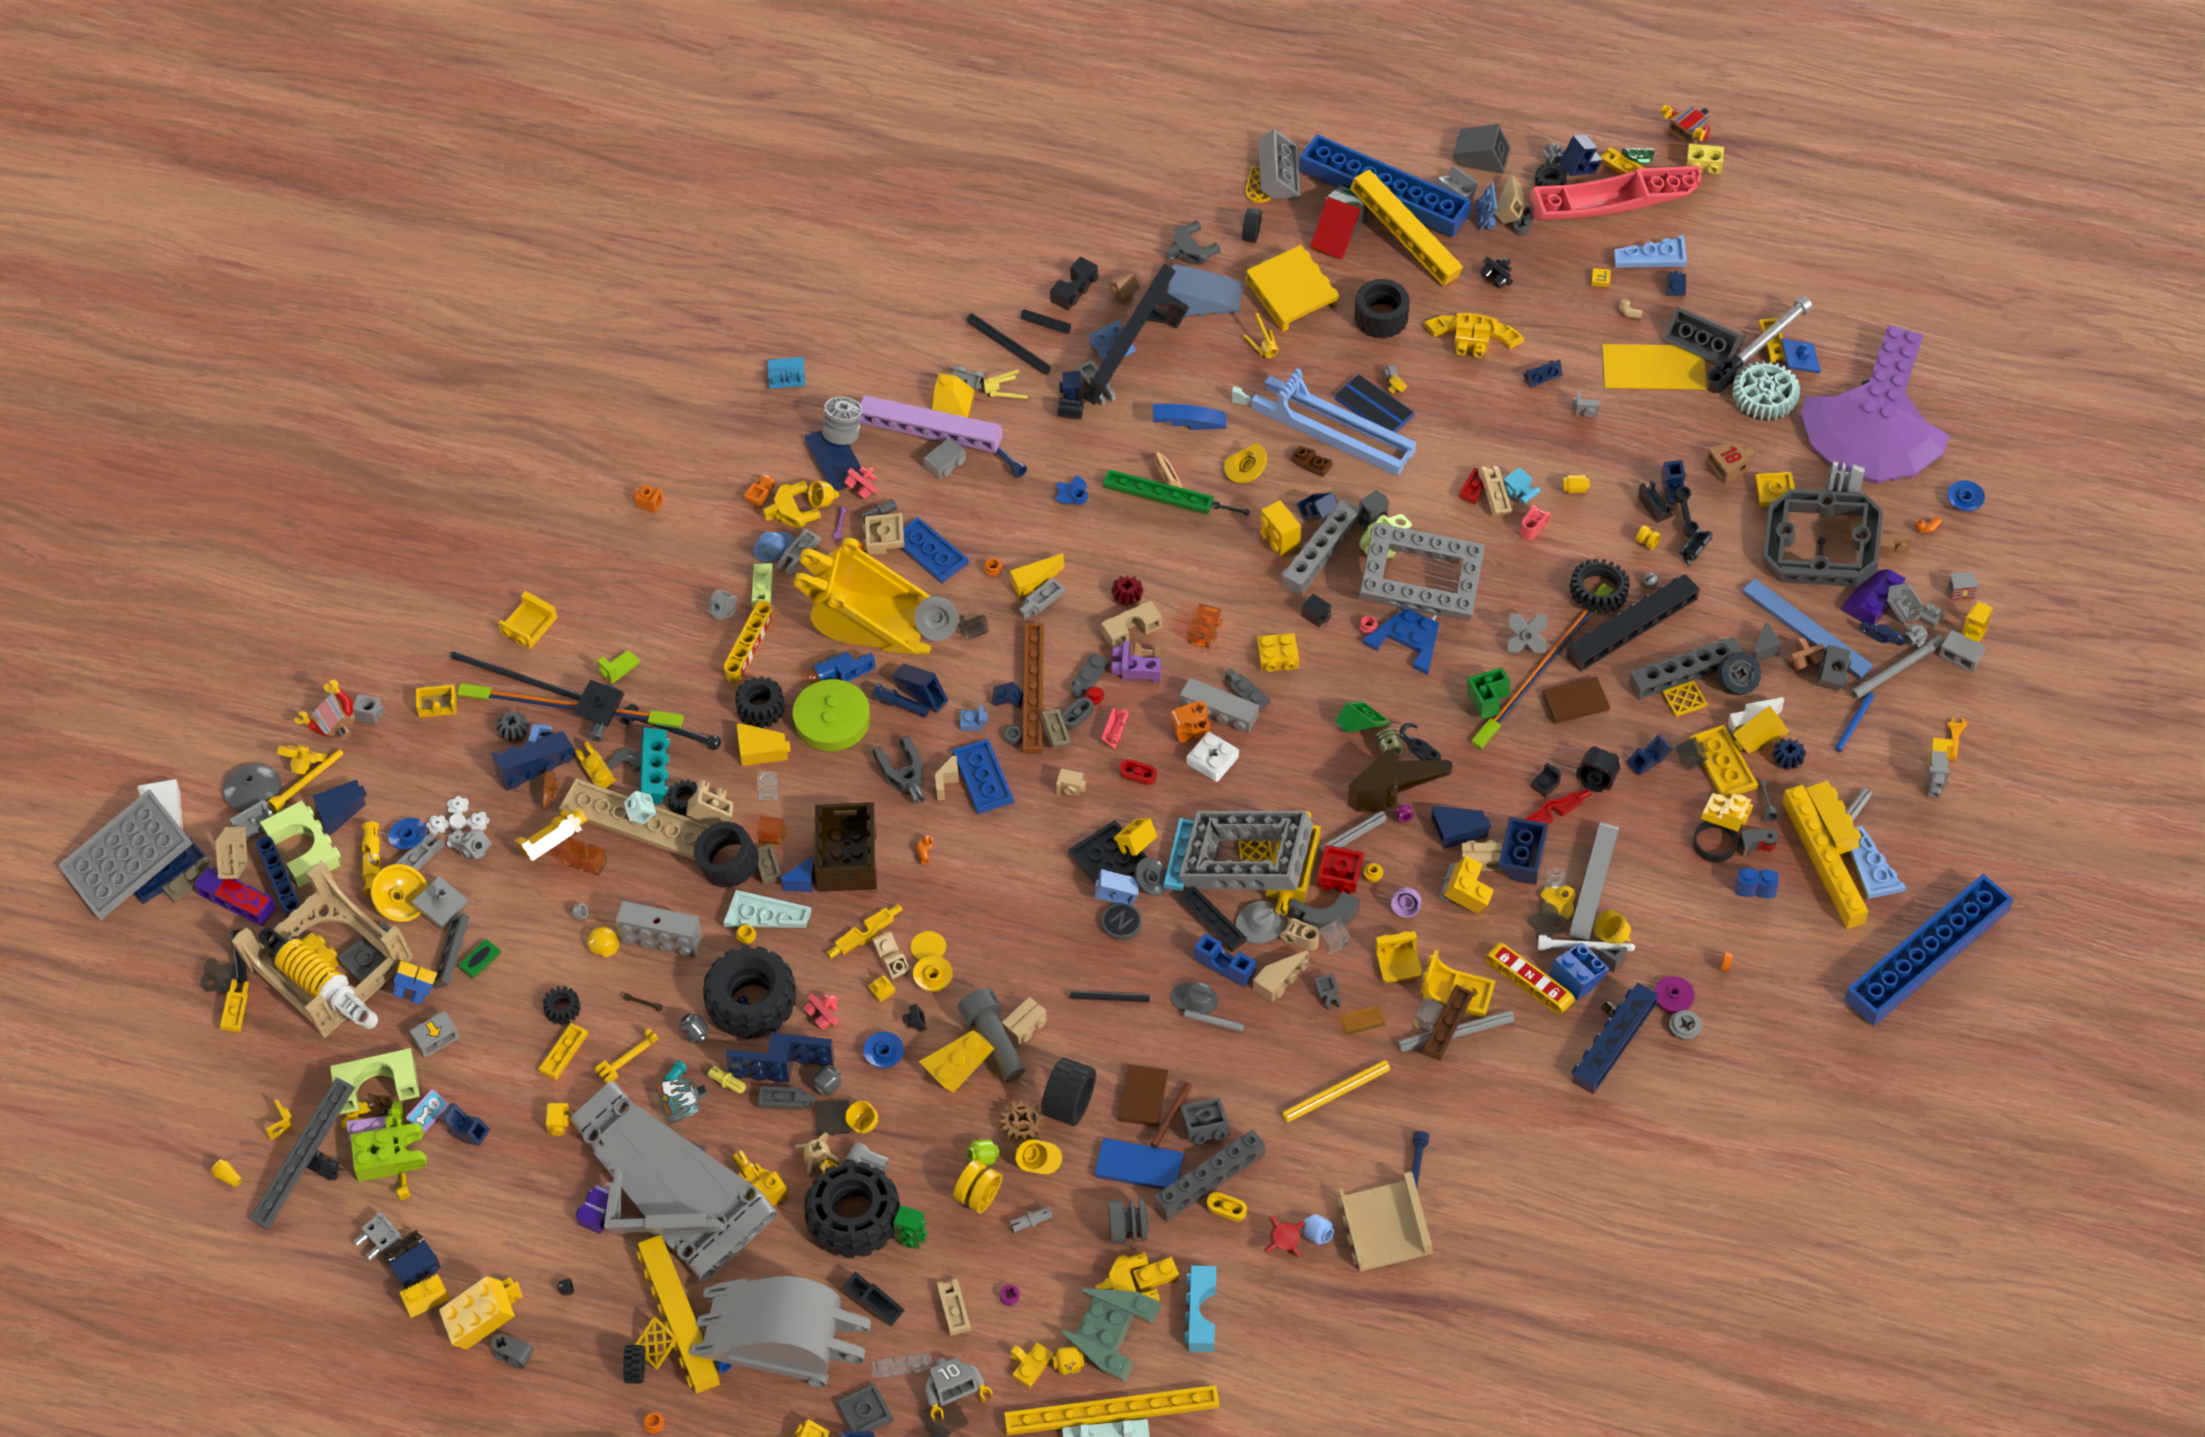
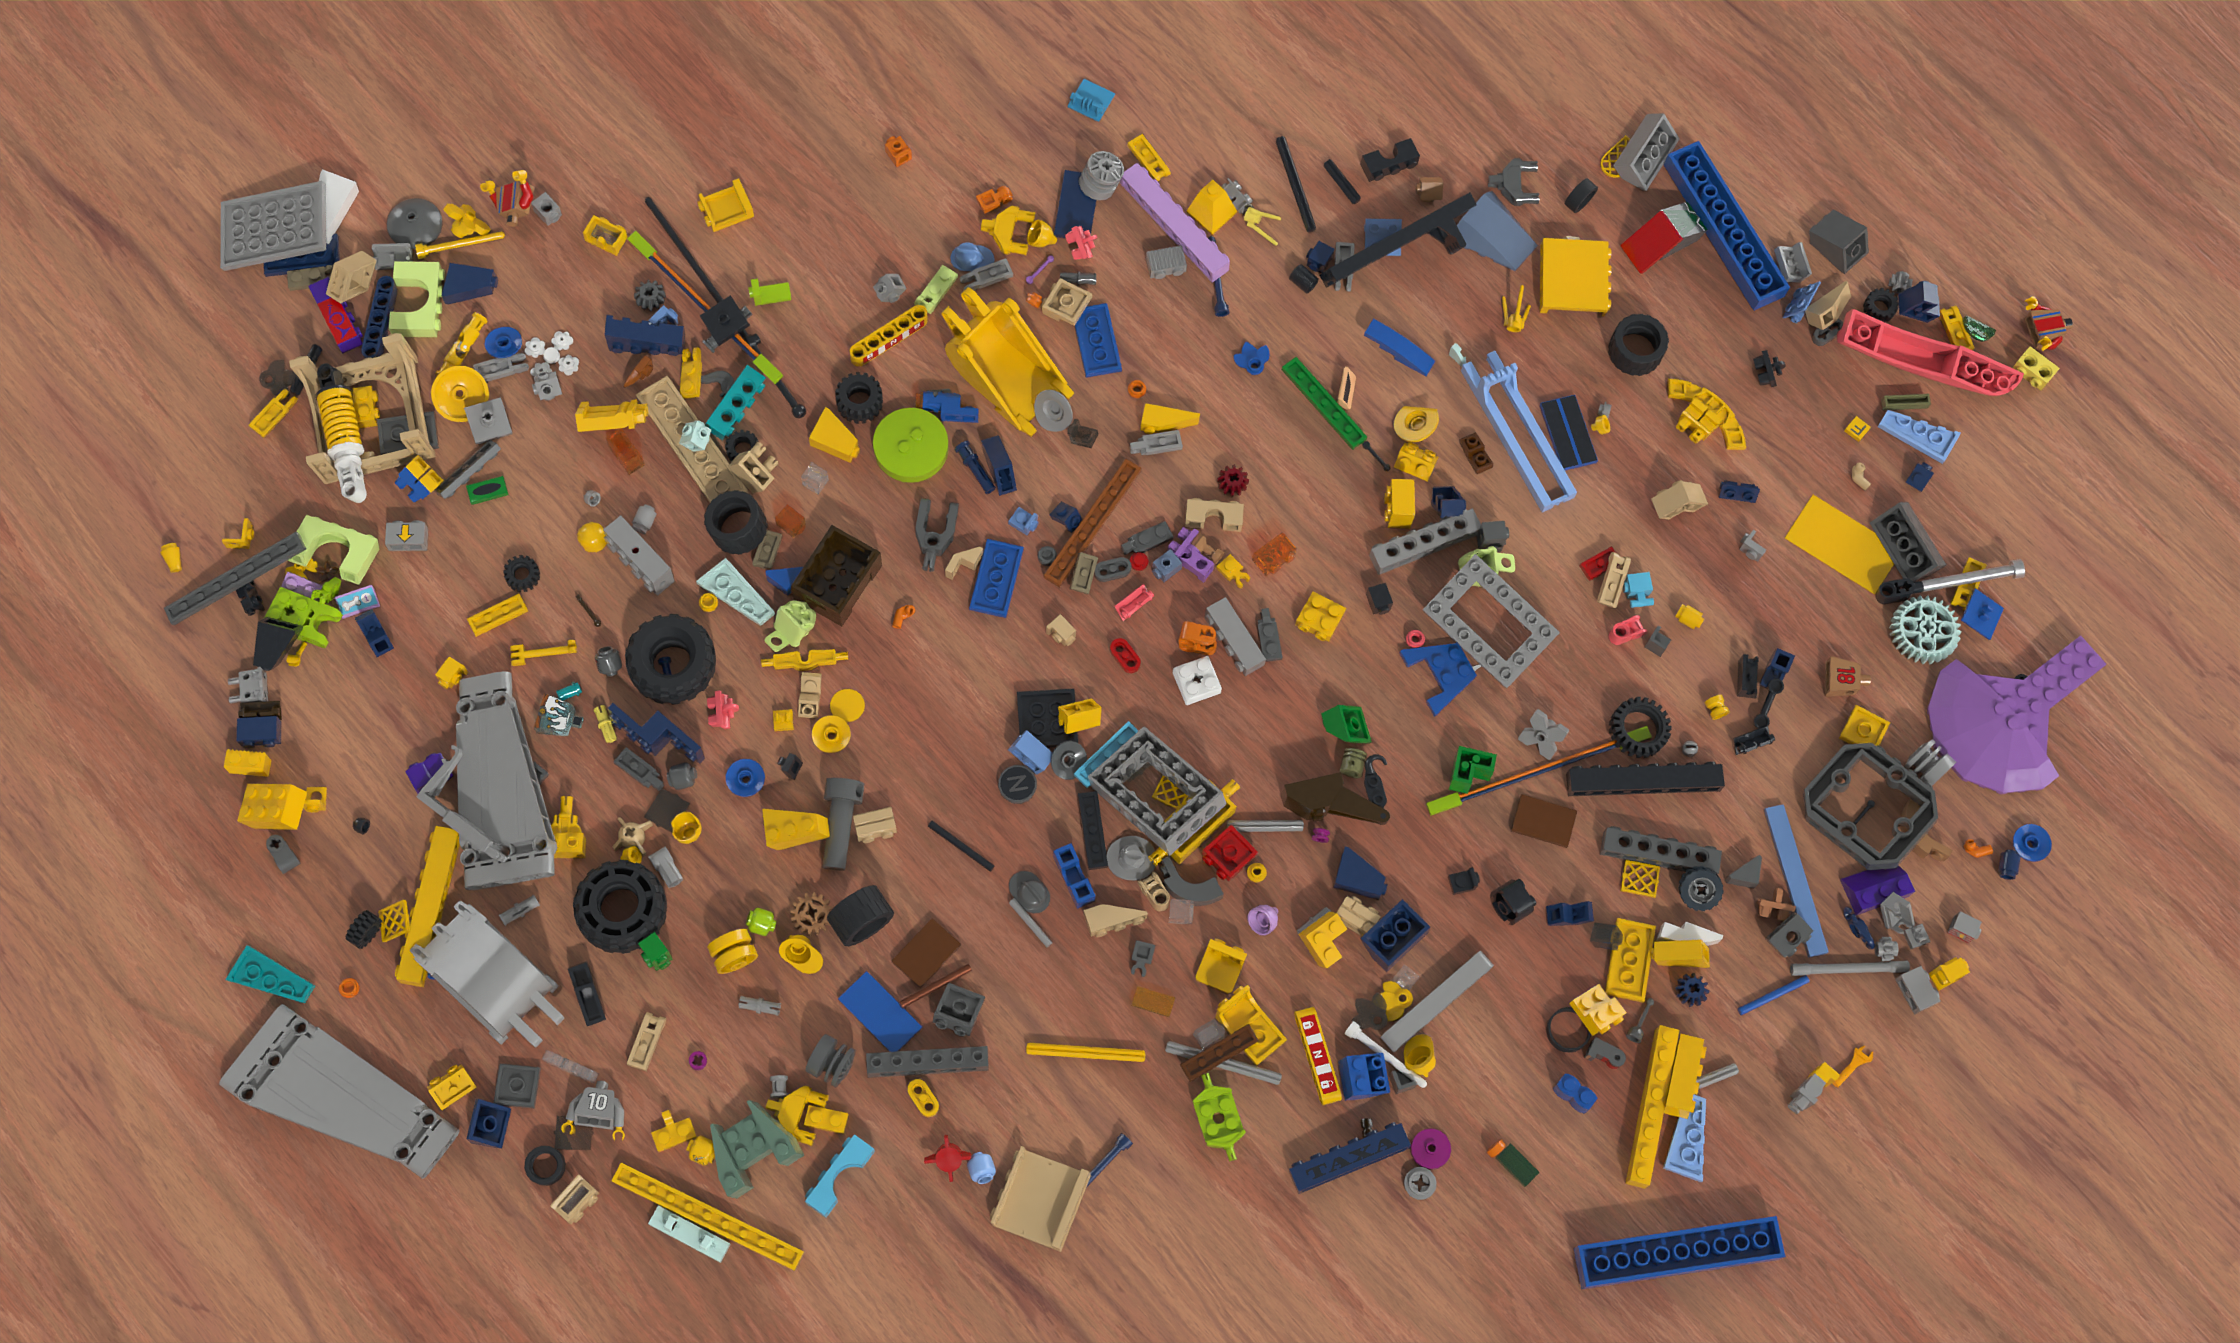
camera: 25 degrees right, 15 degrees up
(378, 1181) = (274, 641): none -> black slope
(639, 896) = (644, 519): none -> light grey brick
(762, 1268) = (519, 910): none -> light grey pin
(834, 908) = (792, 624): none -> yellowish green piece
(863, 386) = (1148, 157): none -> yellow plate
(1096, 1271) = (778, 1086): none -> light grey bush
(1121, 684) = (1166, 566): none -> sand blue brick
(1176, 658) = (1231, 568): none -> yellow plate
(1266, 494) = (1416, 461): none -> yellow bracket
(1406, 227) = (1713, 279): yellow brick -> none
(1475, 1061) = (1213, 1101): none -> lime plate
(1500, 402) = (1679, 498): none -> tan brick
(1561, 806) = (1460, 912): red piece -> none
(1564, 517) = (1657, 642): none -> dark grey panel
(1623, 237) = (1903, 402): none -> olive piece
(1752, 965) = (1517, 1165): none -> clear green tile
(1961, 521) = (2009, 864): none -> dark blue brick

